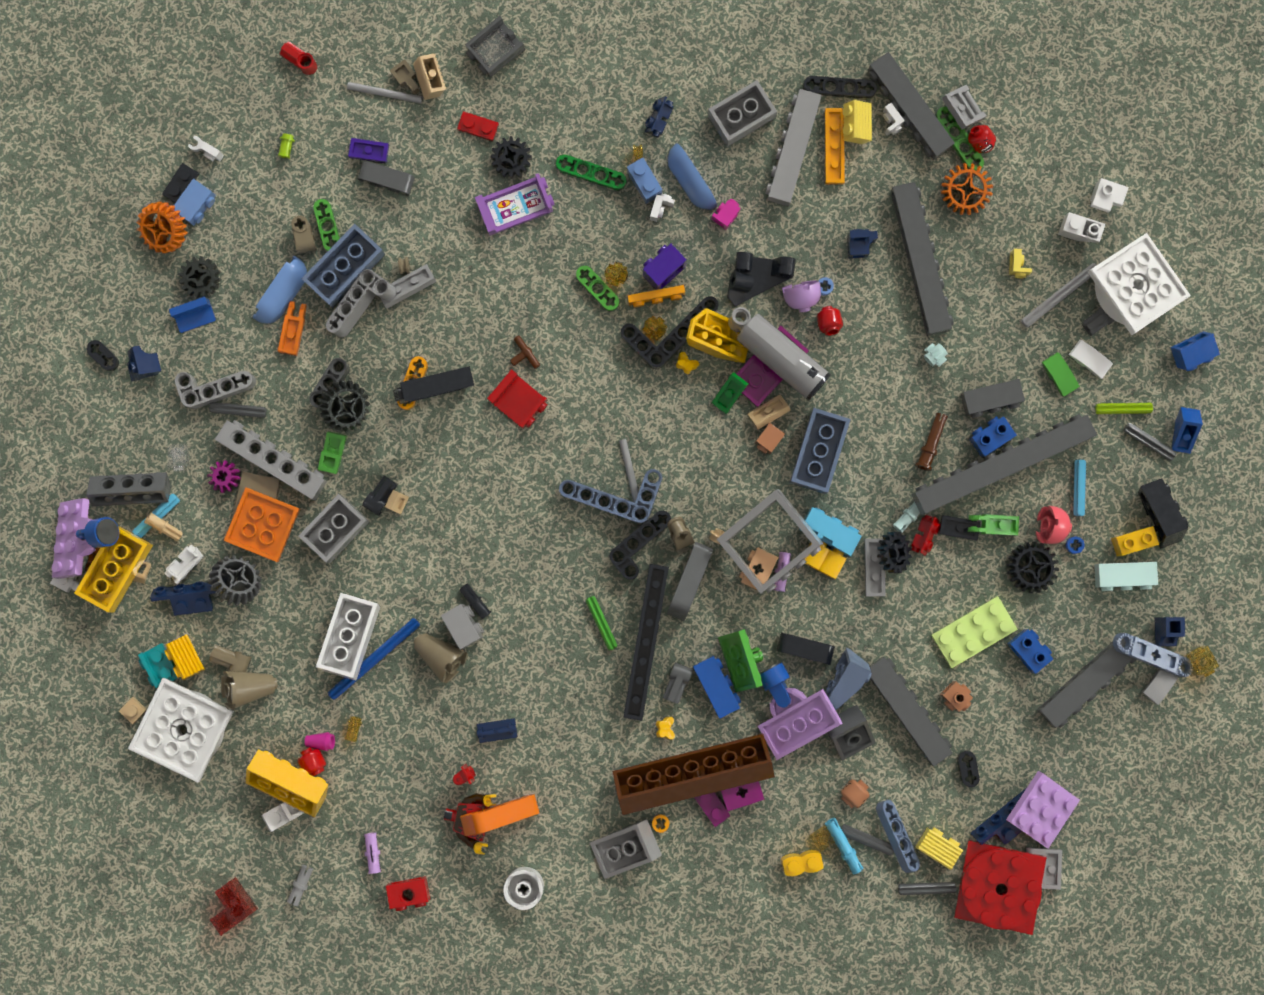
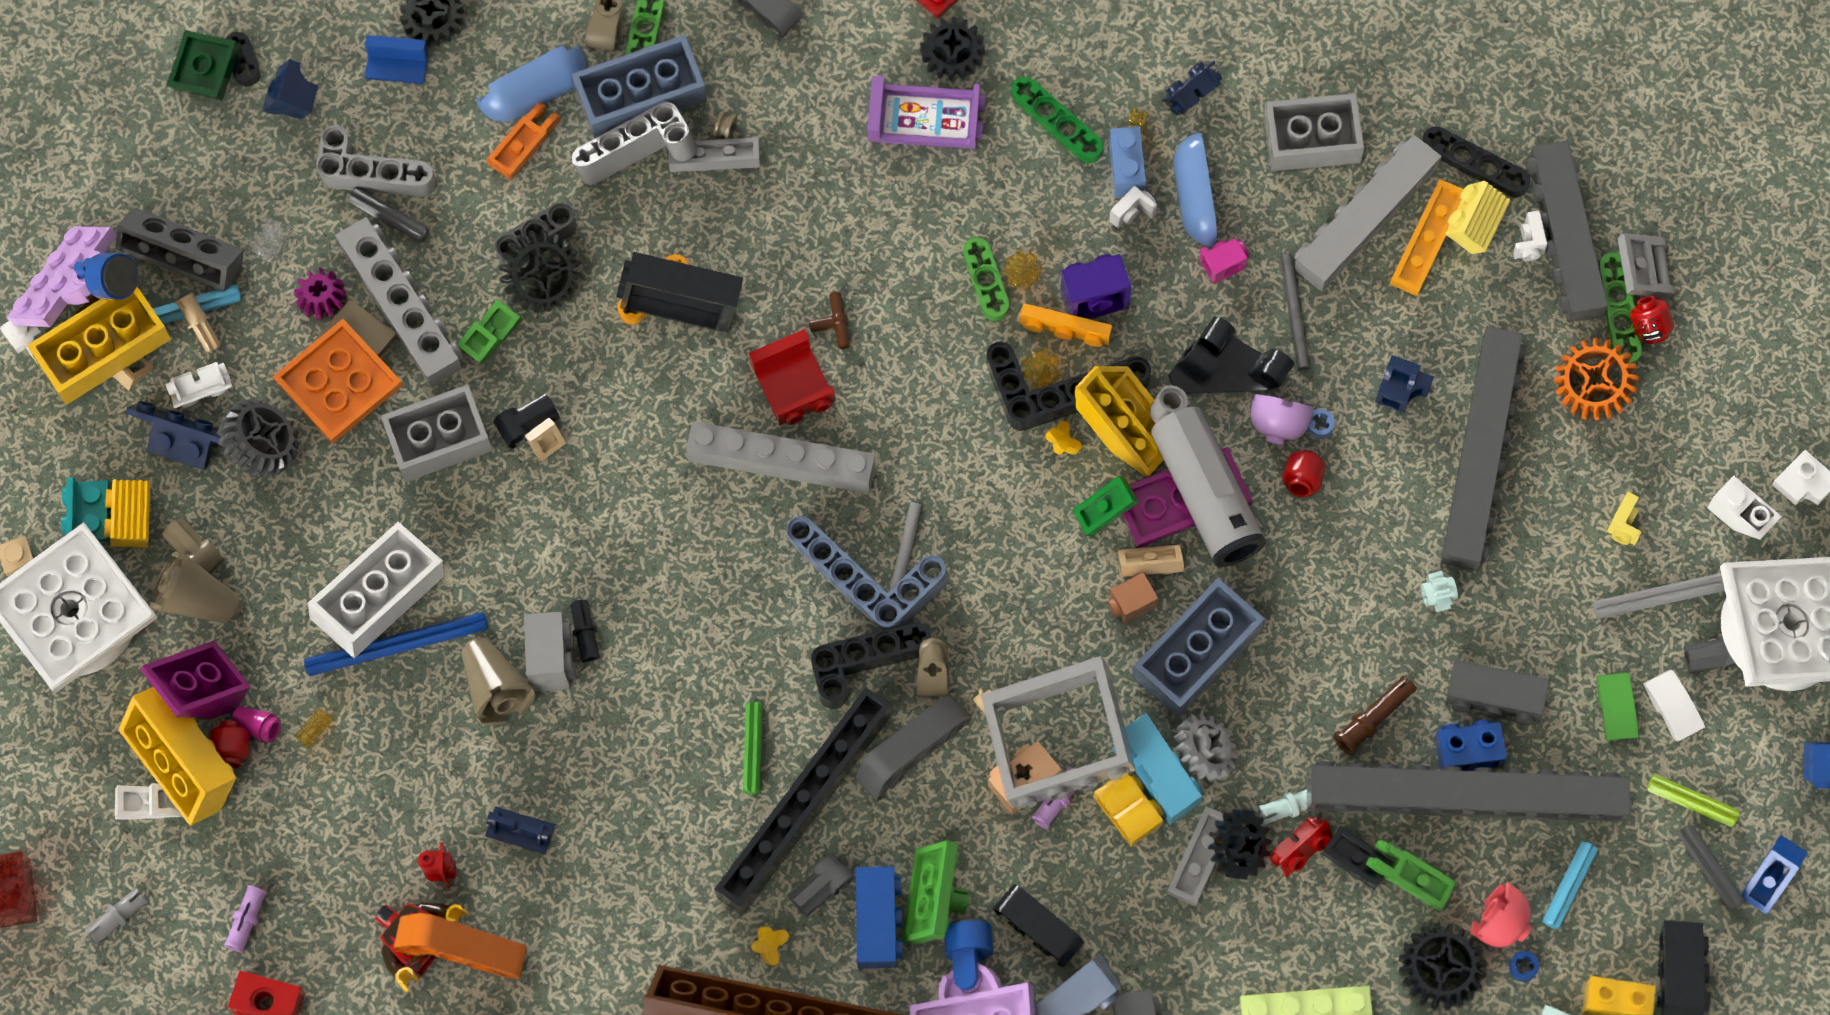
camera: 25 degrees right, 15 degrees down
(82, 371) = (203, 65): none -> dark green plate
(276, 740) = (198, 682): none -> magenta slope
(534, 450) = (781, 457): none -> light grey brick
(778, 224) = (1294, 311): none -> flat silver bar
(850, 506) = (1205, 747): none -> light grey gear

